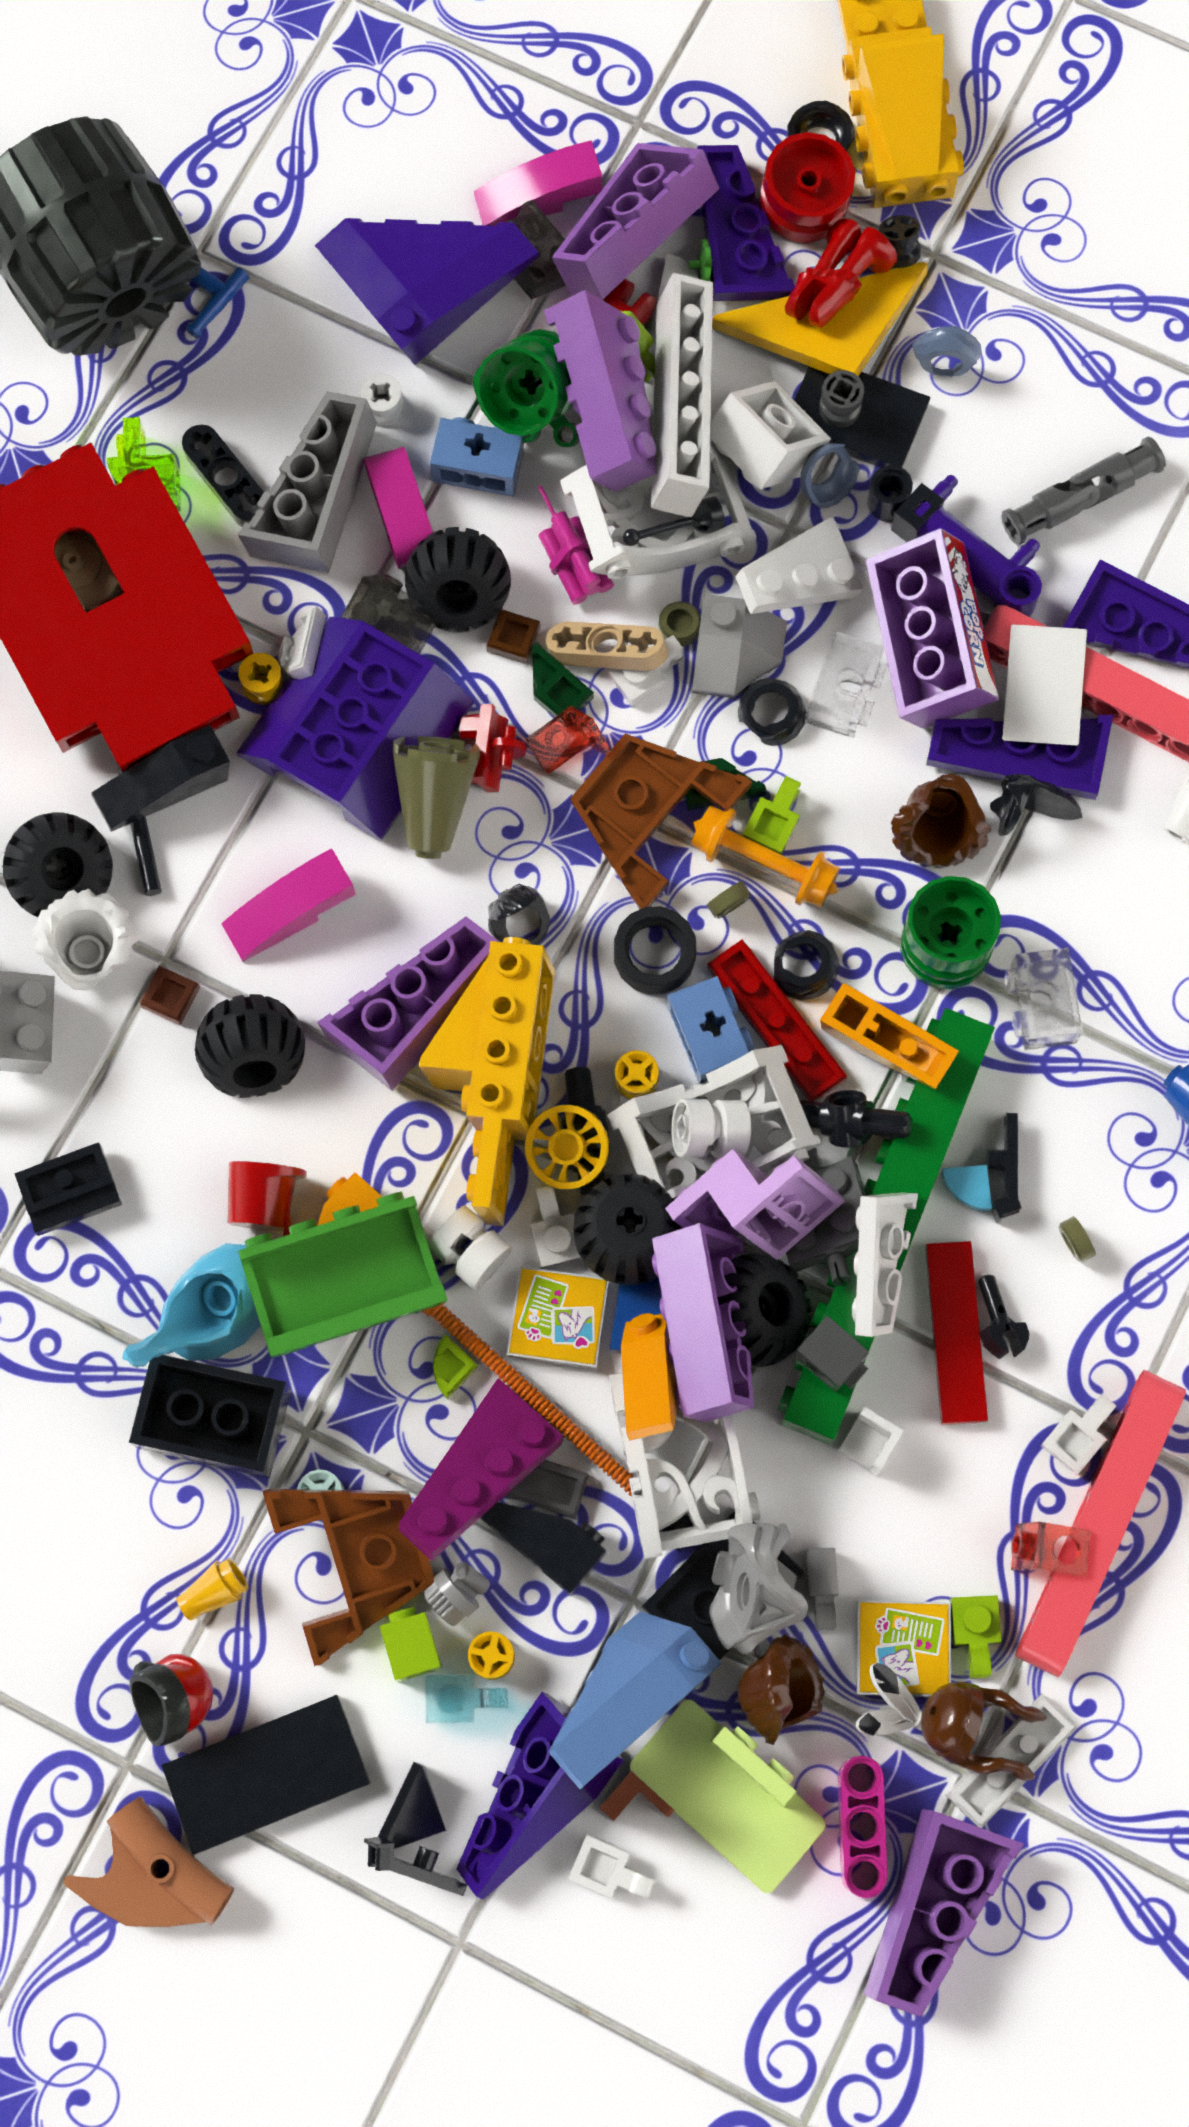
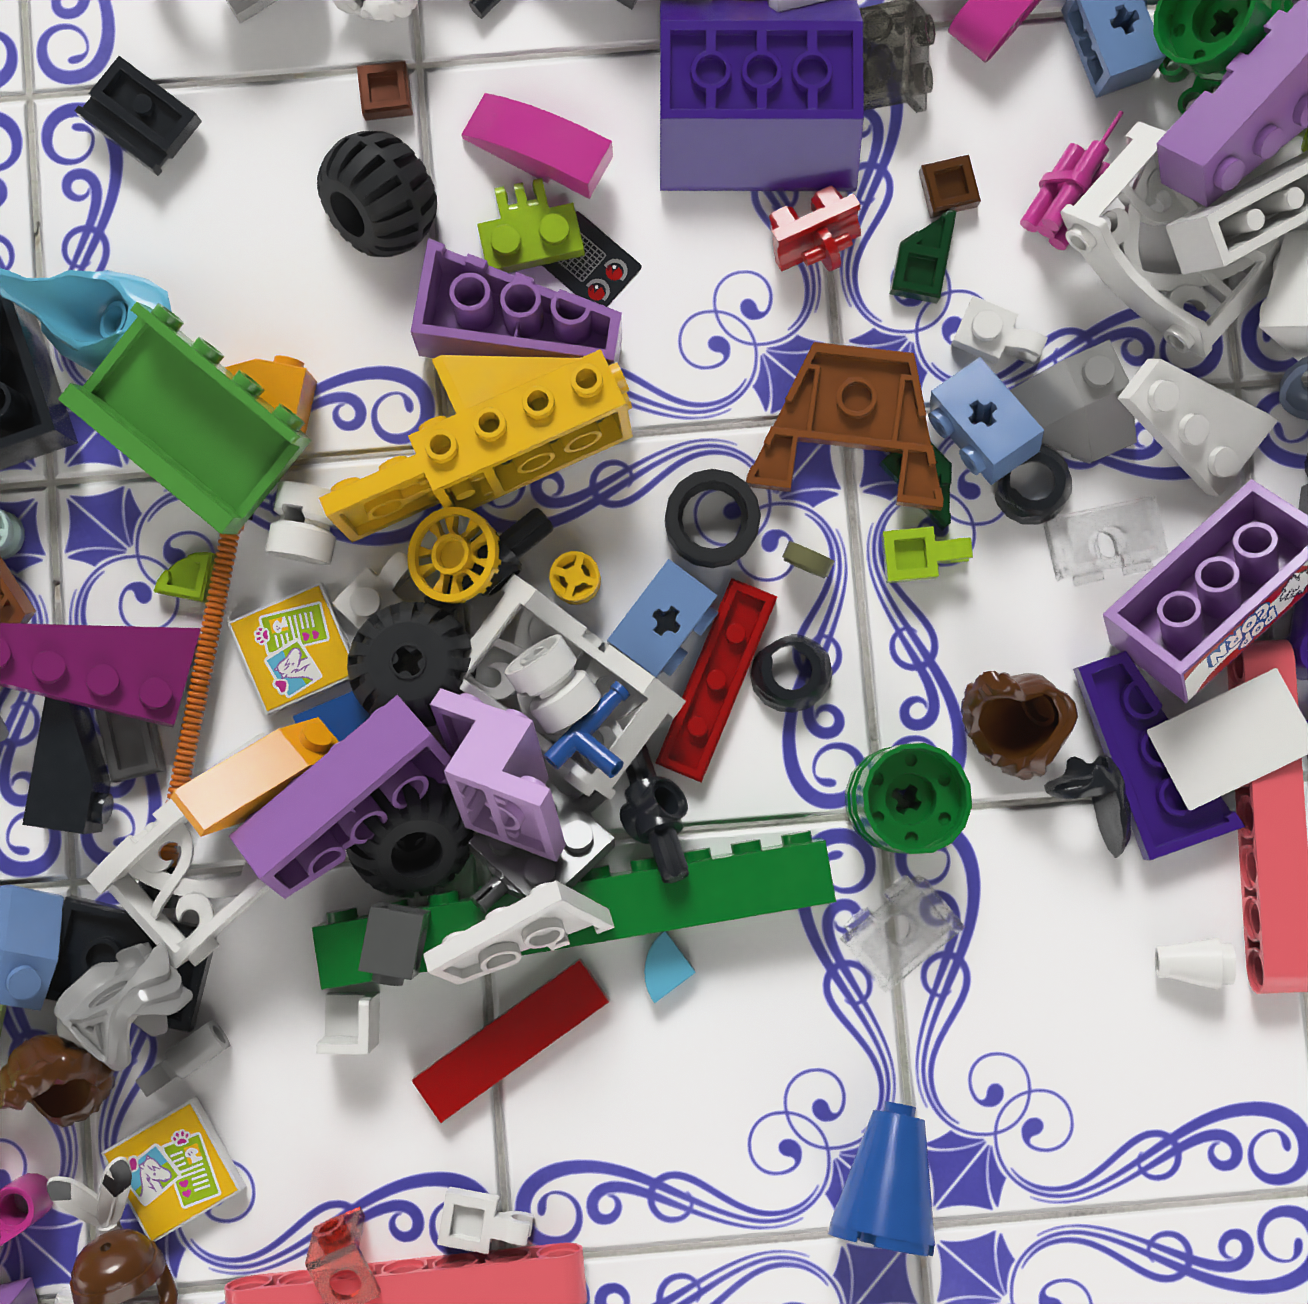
camera: 55 degrees right, 10 degrees up
(261, 1195) = (235, 296): red hat -> none
(348, 953) = (530, 231): none -> lime hinge
(398, 926) = (602, 270): none -> black sticker
(433, 790) = (736, 200): olive cone -> none
(458, 578) = (971, 91): black wheel -> none
(512, 901) = (670, 351): black piece -> none
(565, 738) = (871, 298): clear red bracket -> none
(621, 657) = (995, 300): tan beam -> none
(681, 621) = (1067, 336): olive tile -> none
(688, 707) = (982, 398): none -> medium blue brick
(706, 519) = (1191, 290): black hinge -> none
(714, 832) = (867, 503): light orange piece -> none
(762, 1131) = (580, 736): none -> blue piece
(887, 1037) = (757, 803): light orange slope -> none
(976, 1625) = (233, 1228): lime plate -> none
(1000, 1324) = (545, 1079): black bar -> none
(1008, 1162) = (712, 991): black piece -> none
(1076, 1239) = (672, 1106): olive tile -> none

